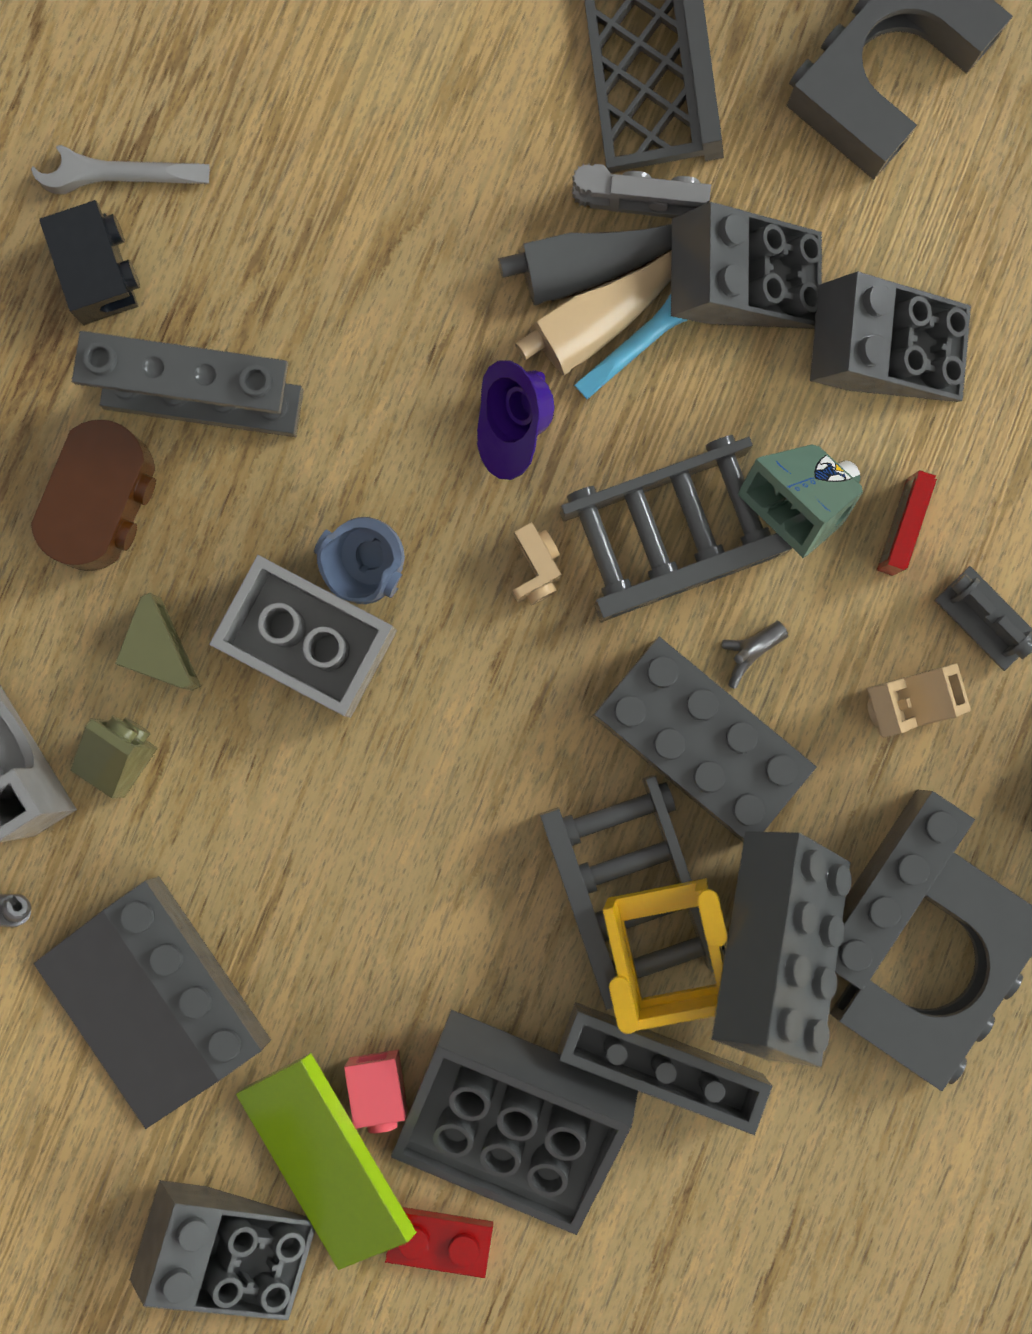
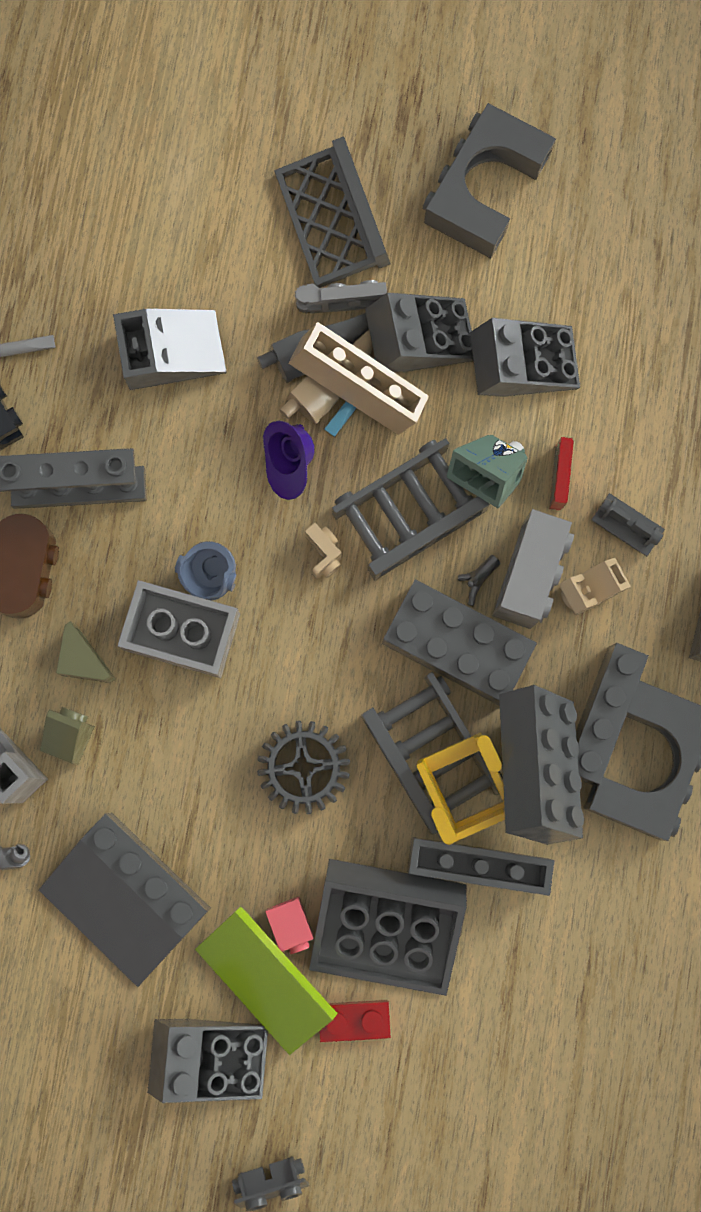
camera: 15 degrees left, 5 degrees down
(372, 215) = (168, 346): none -> slope
(437, 915) = (278, 770): none -> dark grey gear
(639, 322) = (358, 379): none -> tan brick
(836, 658) = (534, 569): none -> light grey brick

